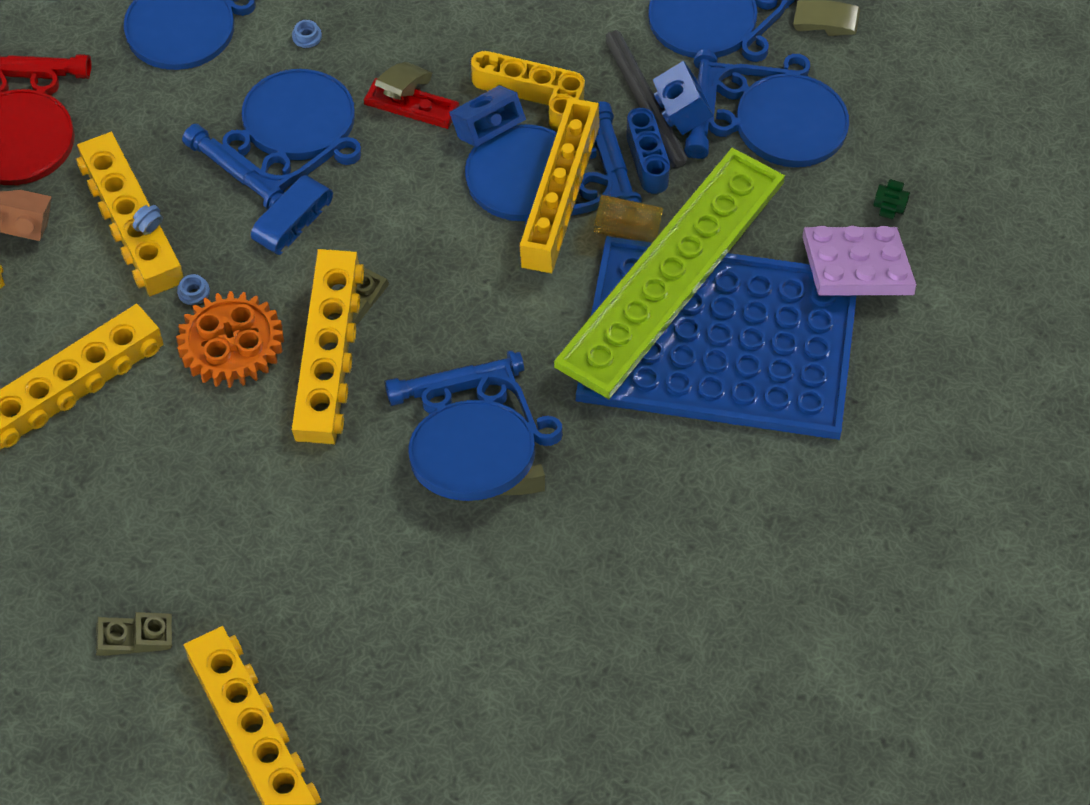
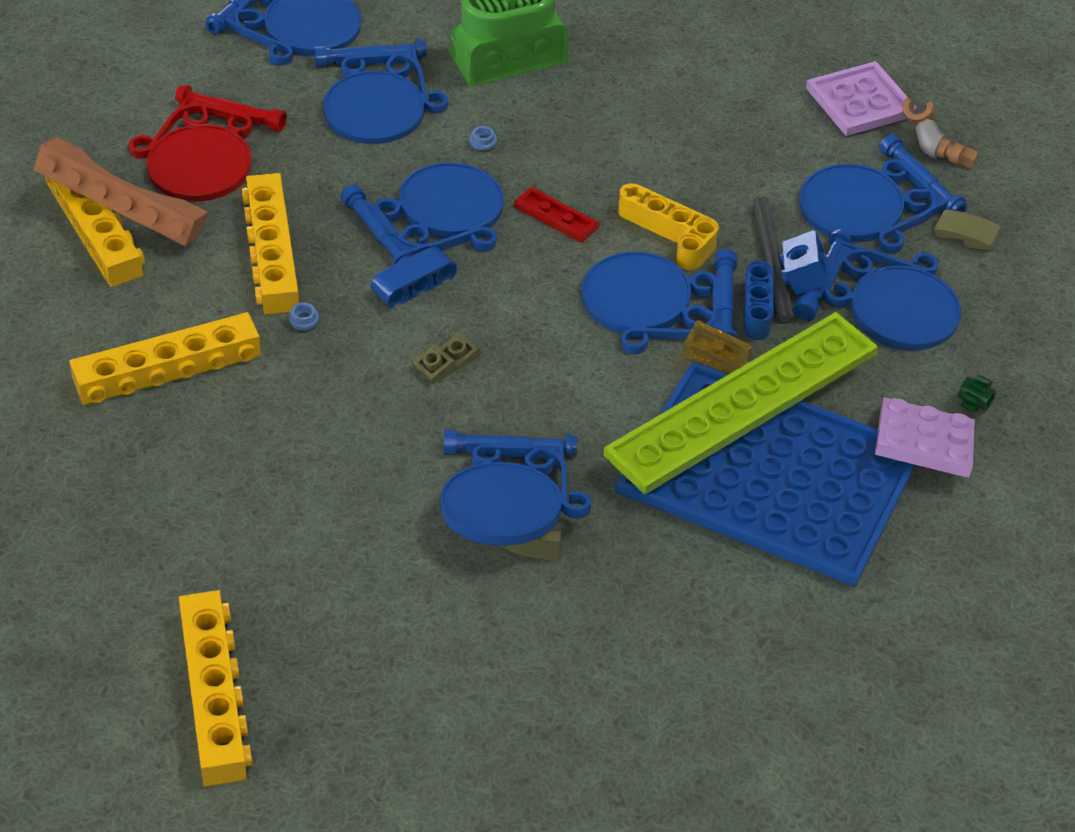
camera: 15 degrees right, 10 degrees down
(142, 634) = (147, 583): olive slope -> none
(147, 219) = (281, 246): medium blue plate -> none
(230, 339) = (320, 363): orange gear -> none
(331, 269) = (422, 343): yellow brick -> none
(402, 79) = (553, 192): olive slope -> none
(487, 115) = (619, 237): blue brick -> none
(559, 186) = (662, 306): yellow brick -> none

